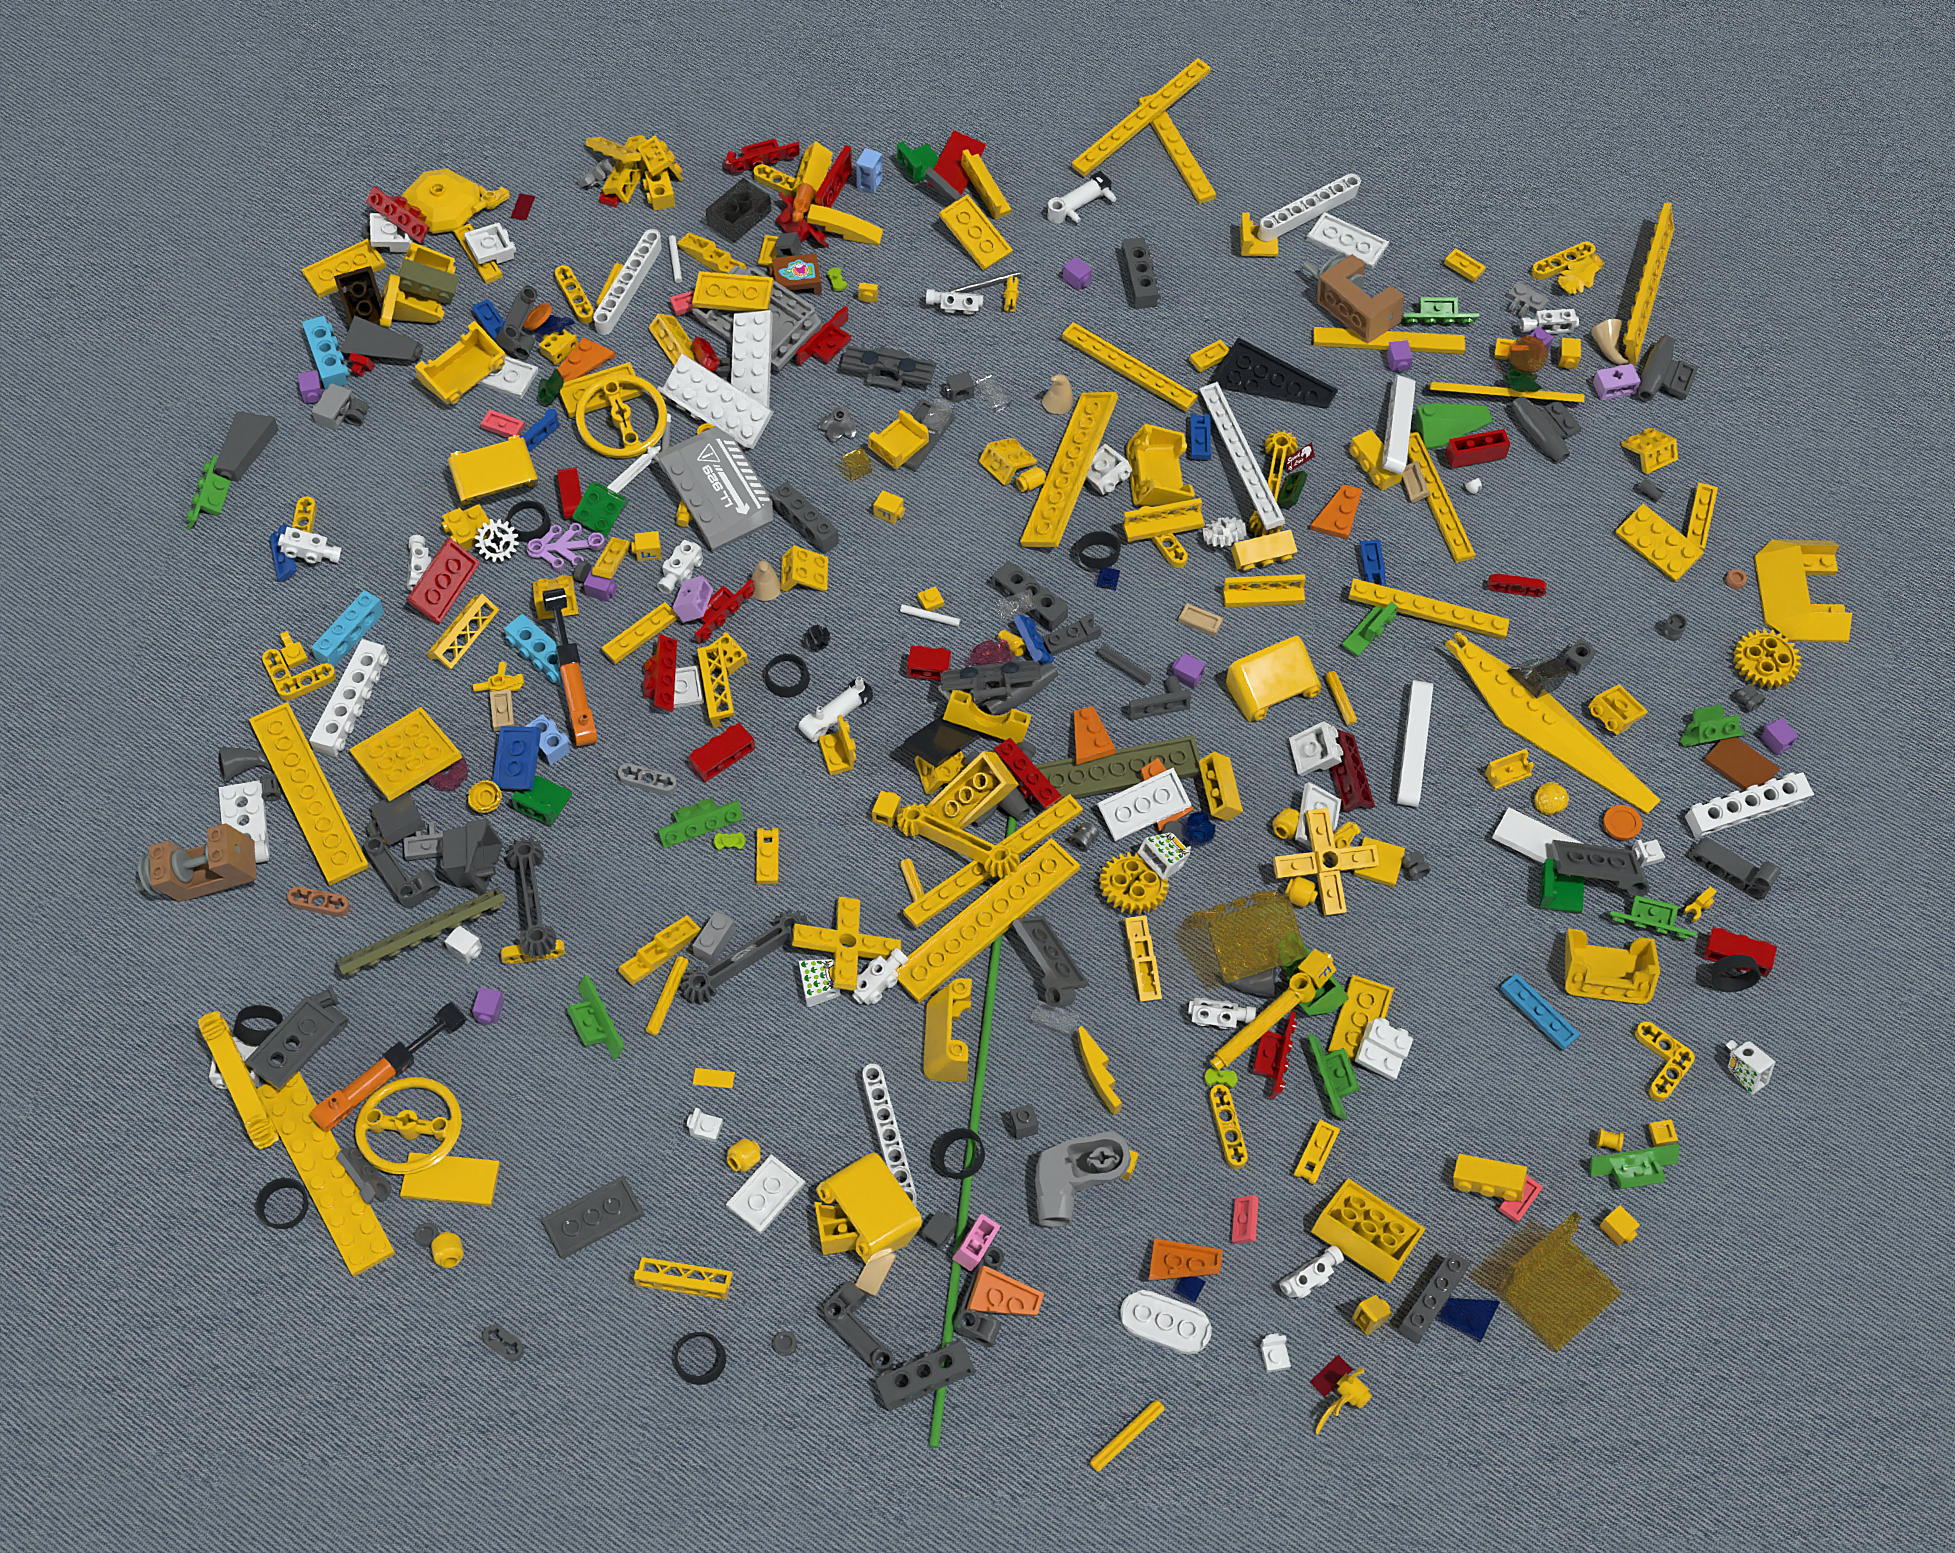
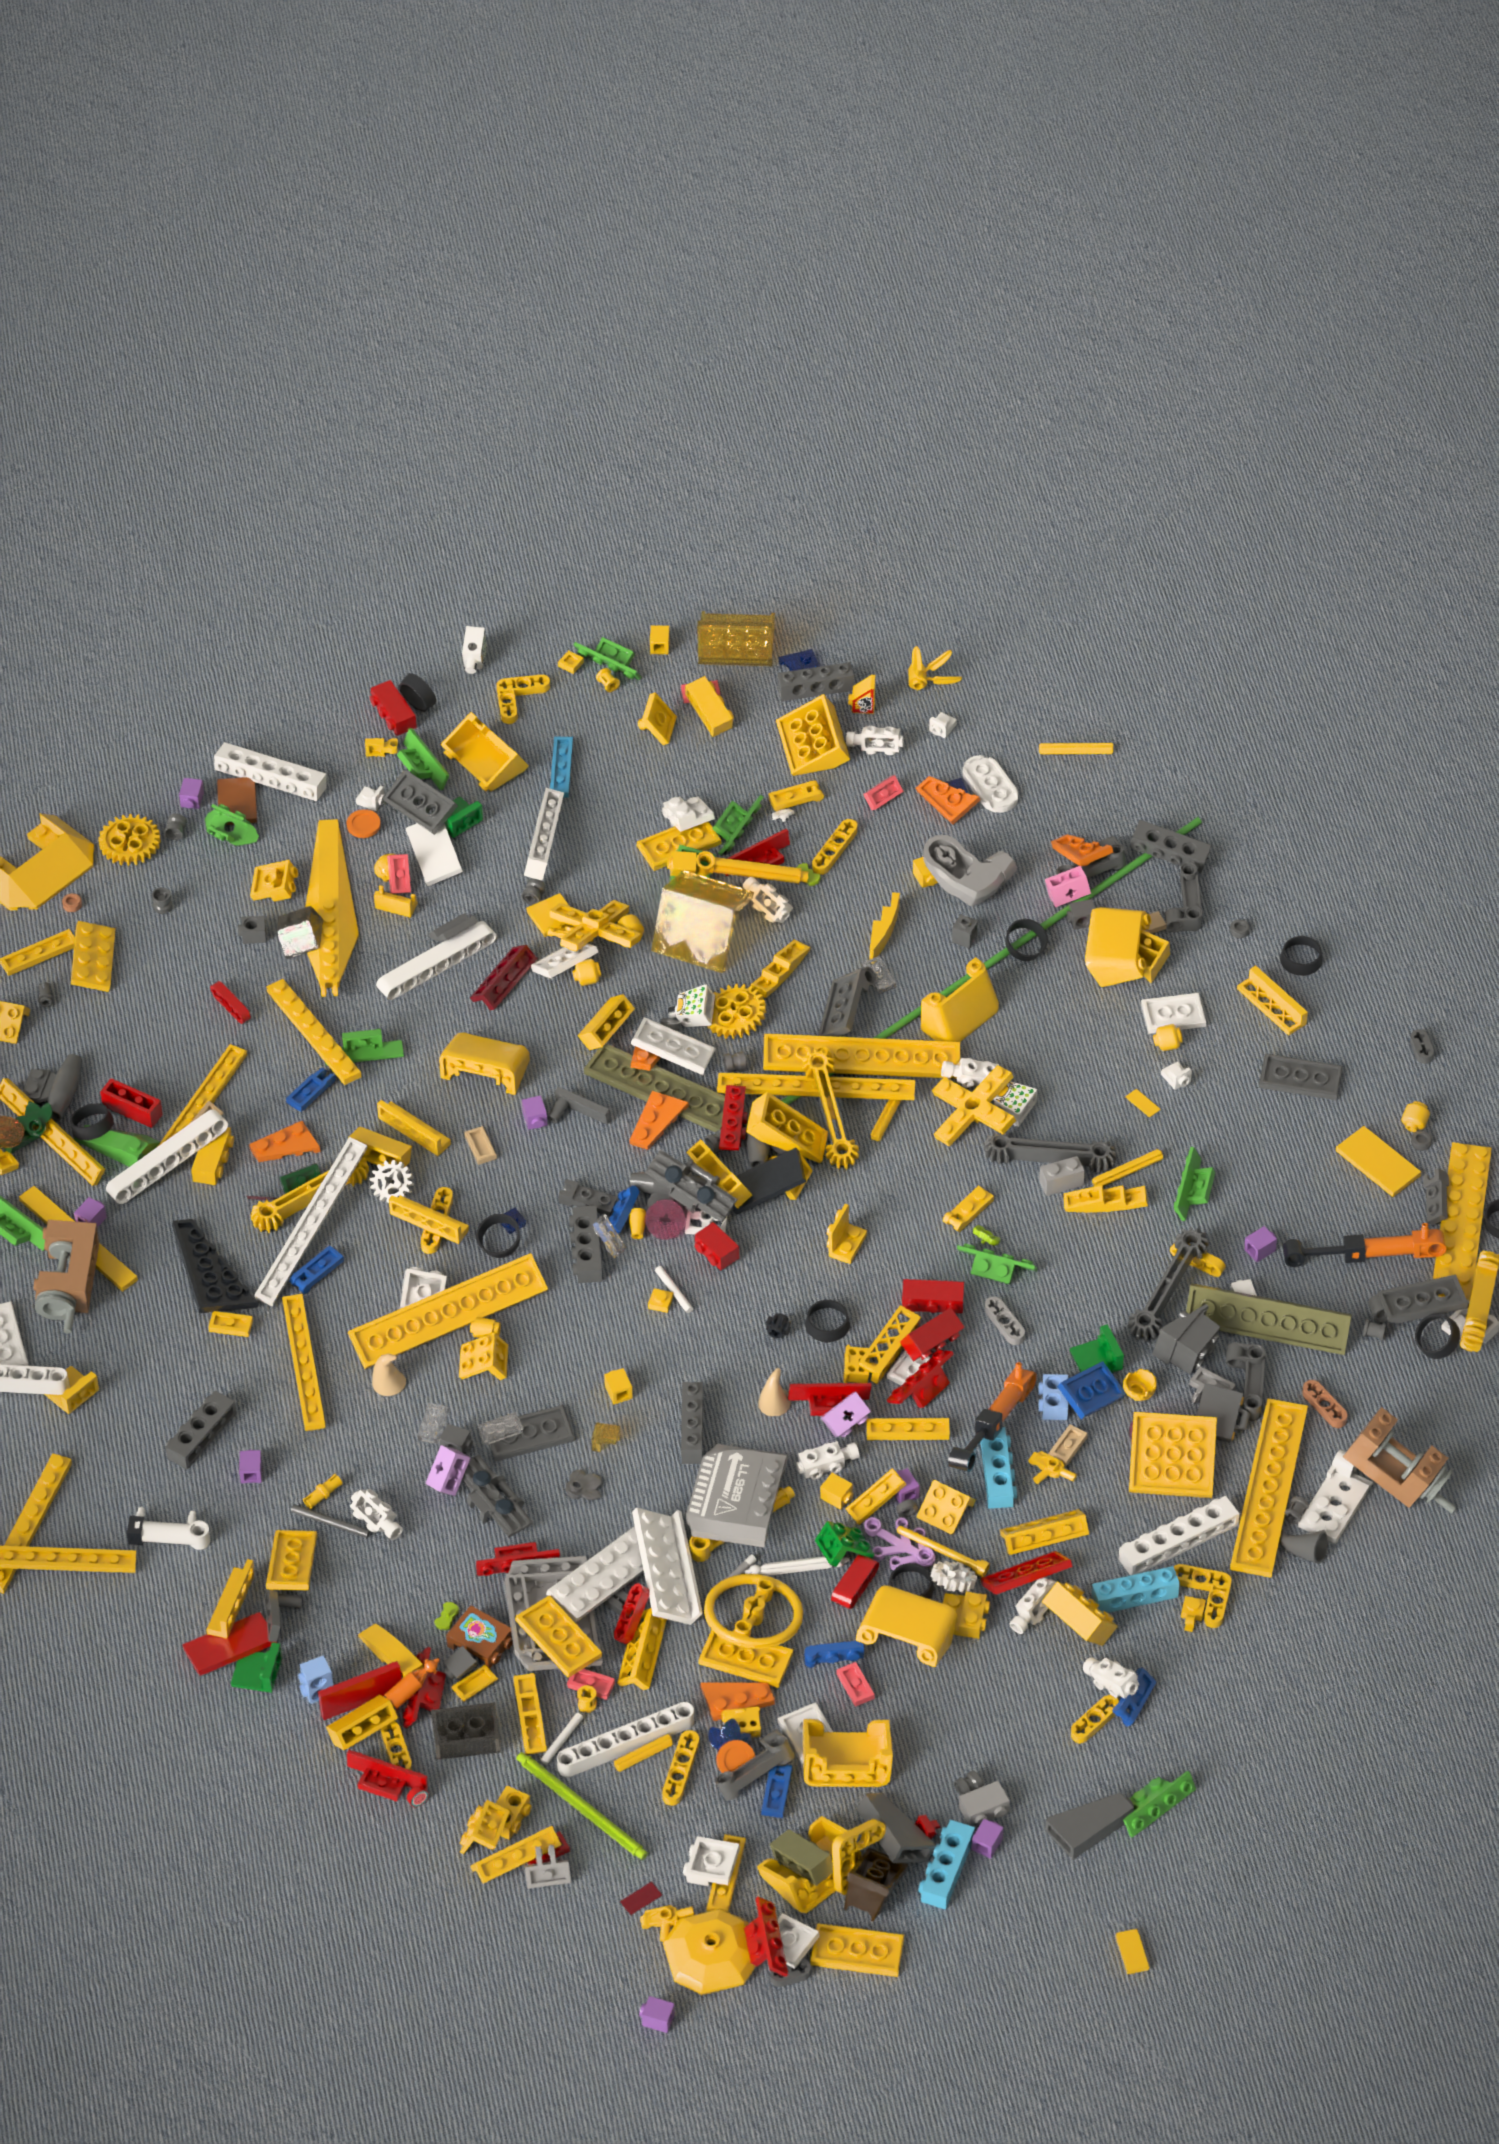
camera: 135 degrees left, 10 degrees down
(145, 389) = (1132, 1951): none -> yellow tile
(370, 570) = (1080, 1613): none -> yellow brick
(408, 1125) = (1380, 1202): yellow piece -> none
(440, 143) = (657, 2014): none -> medium lavender brick
(488, 567) = (979, 1567): none -> yellow piece
(550, 388) = (783, 1685): dark green plate -> none
(588, 227) = (583, 1806): none -> lime piece
(613, 149) = (515, 1868): yellow plate -> none
(680, 284) = (589, 1696): none -> yellow bush
(686, 710) = (932, 1335): none -> red brick
(804, 568) = (738, 1385): yellow bracket -> none
(817, 724) = (842, 1265): white piece -> none
(868, 292) = (437, 1577): yellow plate -> none
(886, 808) = (853, 1175): yellow brick -> none
(887, 1127) = (1059, 987): white beam -> none
(899, 439) = (554, 1428): yellow panel -> none
(936, 351) = (448, 1470): none -> lavender brick
(1124, 665) = (573, 1153): dark grey axle -> none
(1156, 467) = (384, 1266): yellow windscreen -> none
(1199, 829) = (652, 1009): clear blue hair -> none
(1307, 1121) = (782, 814): none -> white plant
(1316, 748) = (511, 998): white plate -> none
(1328, 1377) = (919, 697): dark red sticker -> none
(1341, 698) = (448, 1024): yellow axle -> none
(1434, 775) = (452, 928): none -> dark grey slope
(1465, 912) = (544, 834): none -> white brick
(1474, 486) = (161, 1089): white hinge -> none
(1477, 424) = (93, 1131): none -> black tyre
(1514, 1123) = (658, 719): none -> yellow tile
(1532, 787) = (399, 874): none -> coral plate
(1735, 869) = (331, 744): dark grey beam -> none

